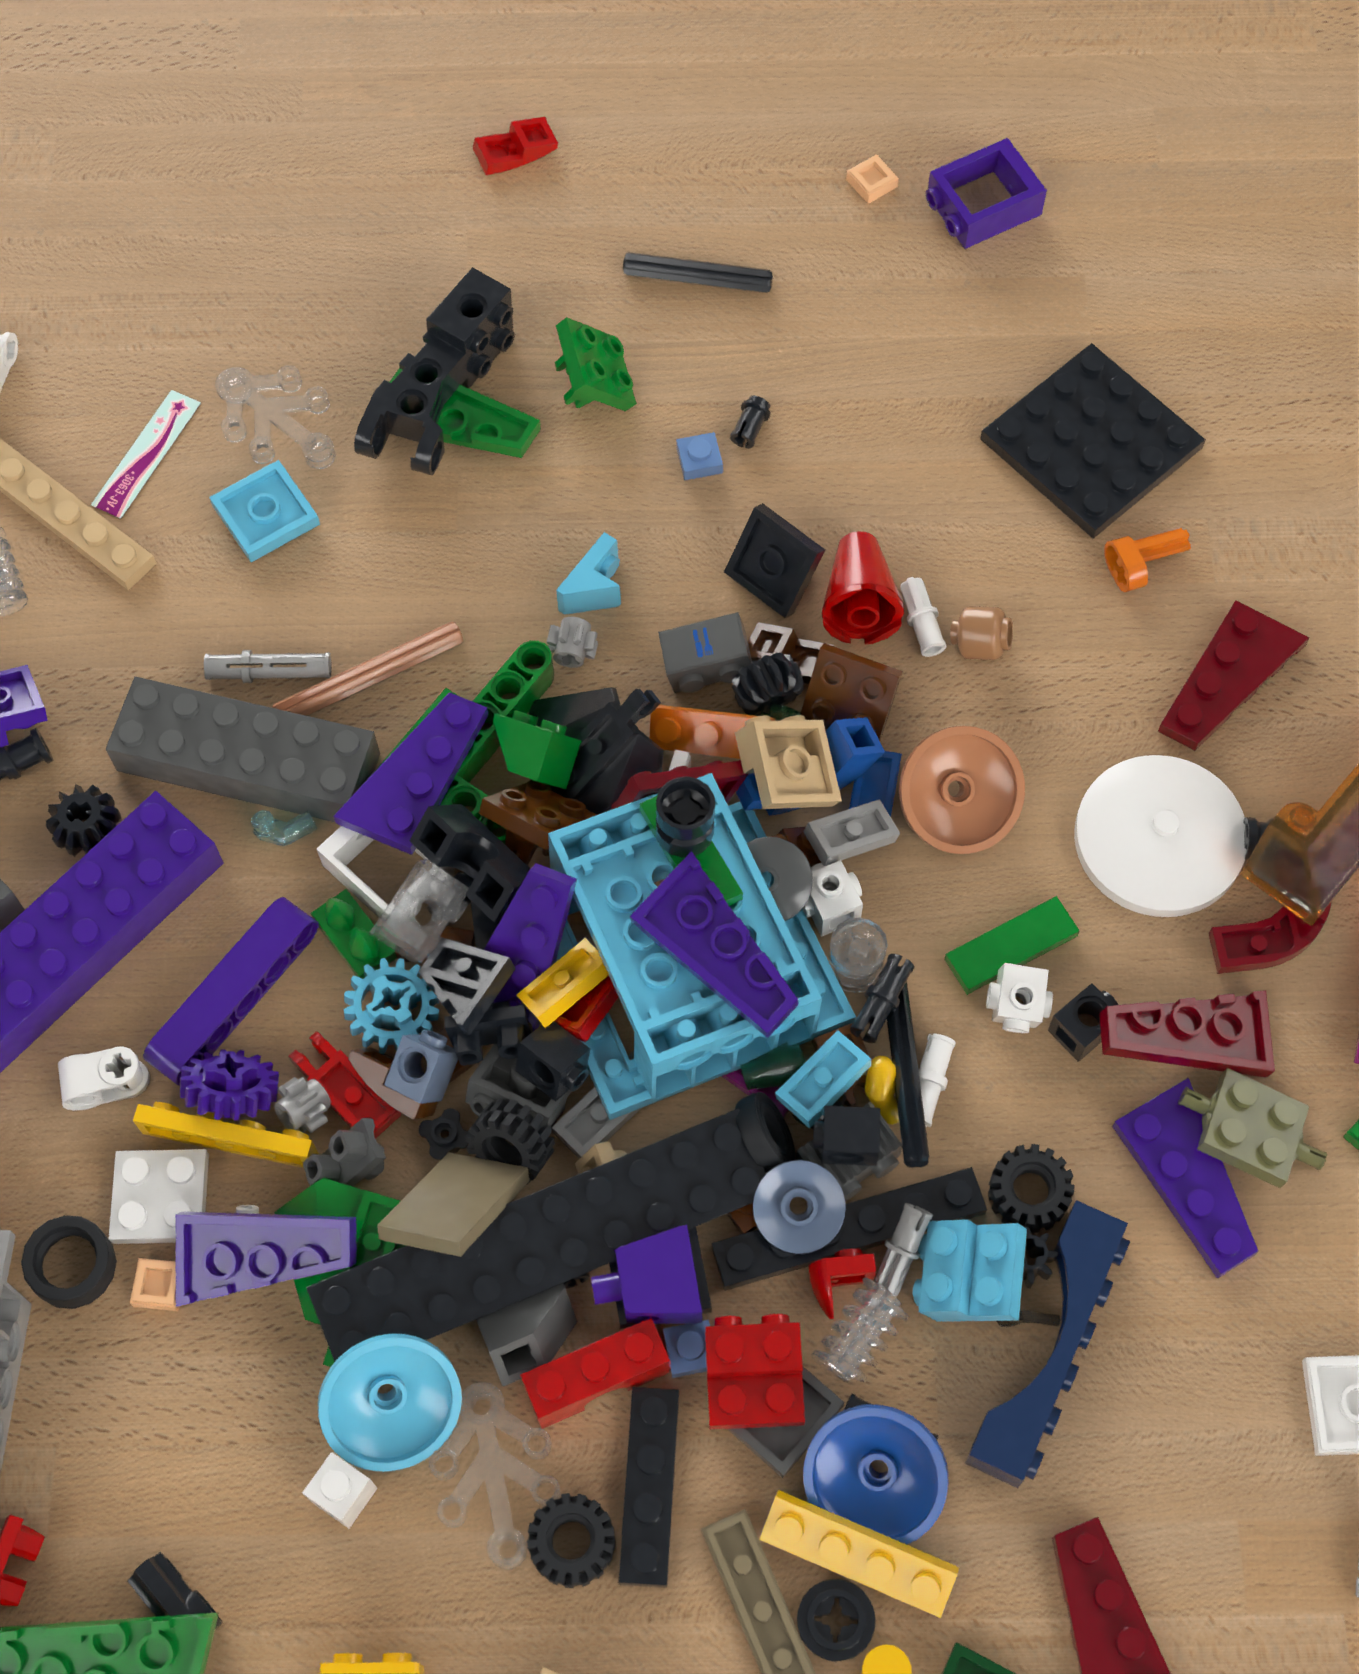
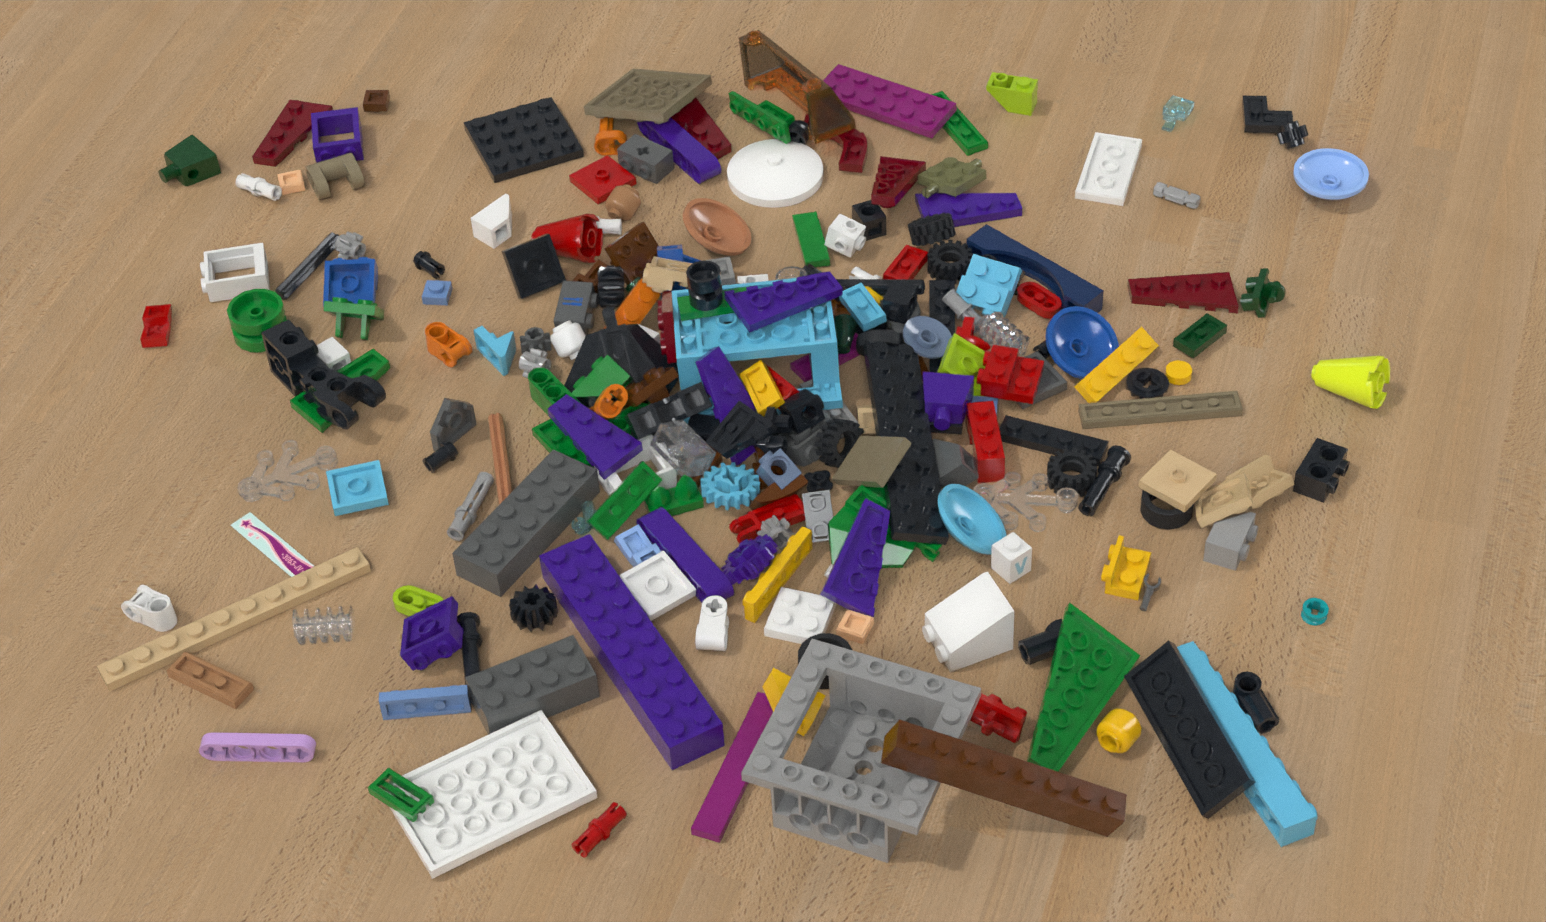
camera: 70 degrees left, 20 degrees down
(64, 676) = (416, 597): none -> lime plate
(159, 968) = (658, 585): none -> white plate
(168, 1465) = (970, 624): none -> white slope
(235, 918) = (636, 545): none -> light blue slope
(308, 866) = (624, 500): none -> green tile
(363, 595) = (441, 456): none -> black pin
(411, 579) = (452, 422): none -> dark grey plate
(474, 772) = (605, 406): none -> orange piece
(505, 375) = (333, 354): none -> white brick
(544, 256) = (252, 314): none -> green wheel
(579, 515) = (446, 343): none -> orange piece
(589, 1605) = (1108, 472): none -> black pin
(622, 615) = (535, 339): none -> dark grey gear
(634, 666) = (567, 339): none -> white head
(654, 219) = (234, 259): none -> white window
(666, 338) = (350, 279): none -> blue plate
(744, 307) = (350, 246): none -> light grey gear
(764, 1282) = (962, 359): none -> lime plate
(839, 143) = (258, 186): none -> white pin
(855, 39) = (189, 162): none -> dark green torso
(874, 473) = (494, 222): none -> white slope
(893, 203) = (333, 169): none -> dark tan connector
(981, 125) = (286, 131): none -> dark red wing
(986, 1371) = (1038, 299): none -> red plate
(992, 1118) = (907, 263): none -> red plate
(1040, 584) = (601, 178): none -> red plate
(1080, 1150) = (931, 229): none -> black tyre
(1093, 209) = (376, 100): none -> reddish brown plate
(1103, 648) = (645, 158): none -> dark grey brick
(1159, 666) = (687, 151): none -> dark purple beam
(1247, 576) = (648, 95): none -> dark tan plate
(1285, 776) = (764, 115): none -> green bracket

